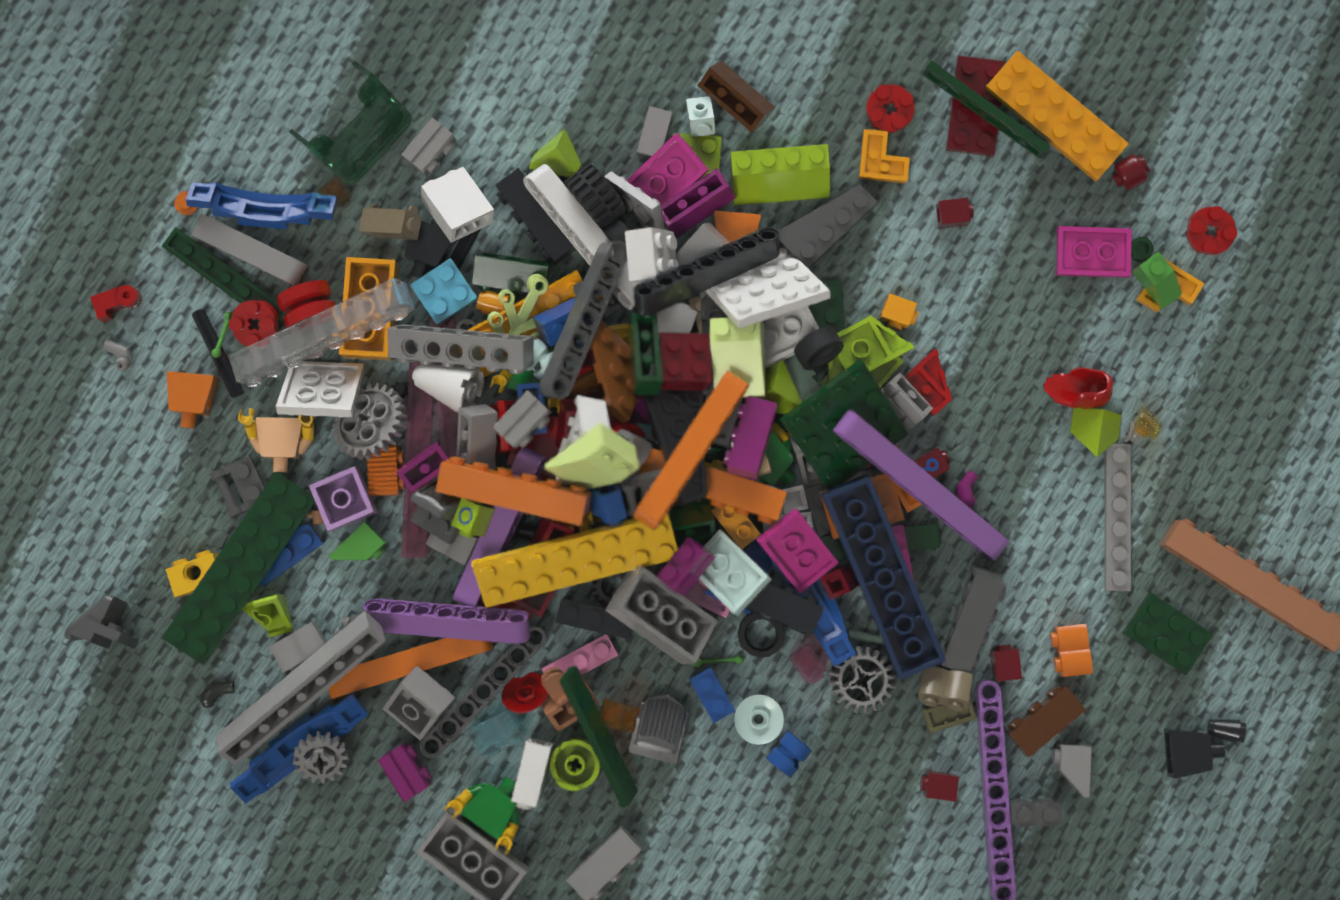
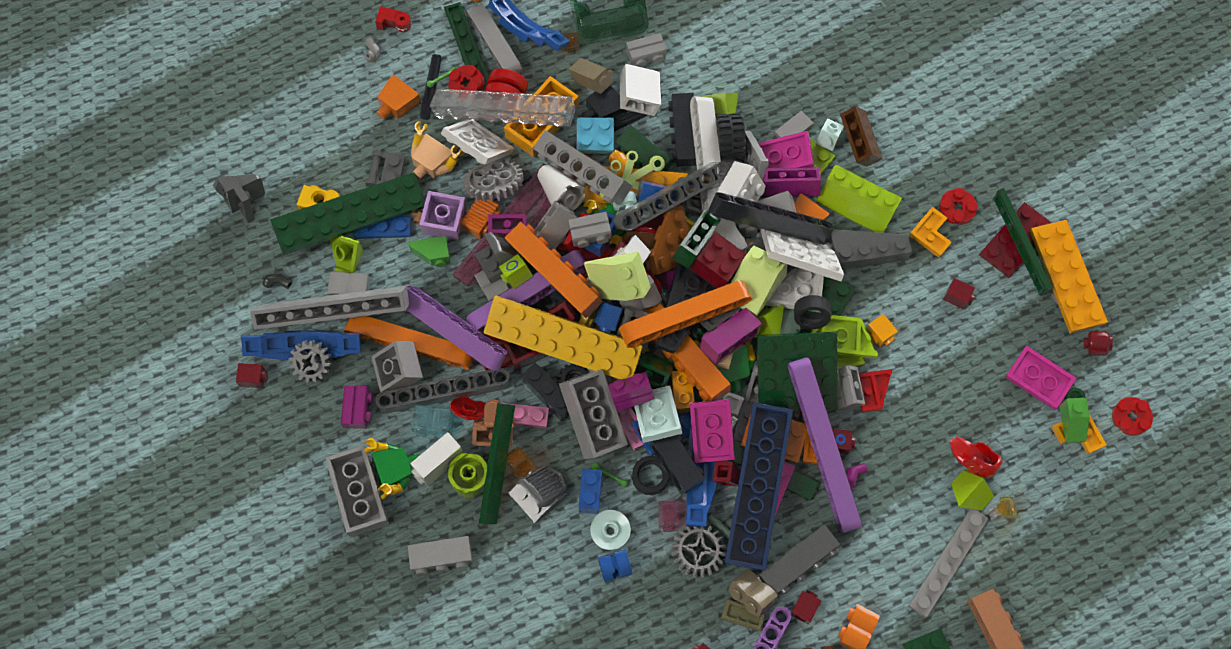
camera: 30 degrees right, 15 degrees down
(269, 814) = (251, 375): none -> dark red brick

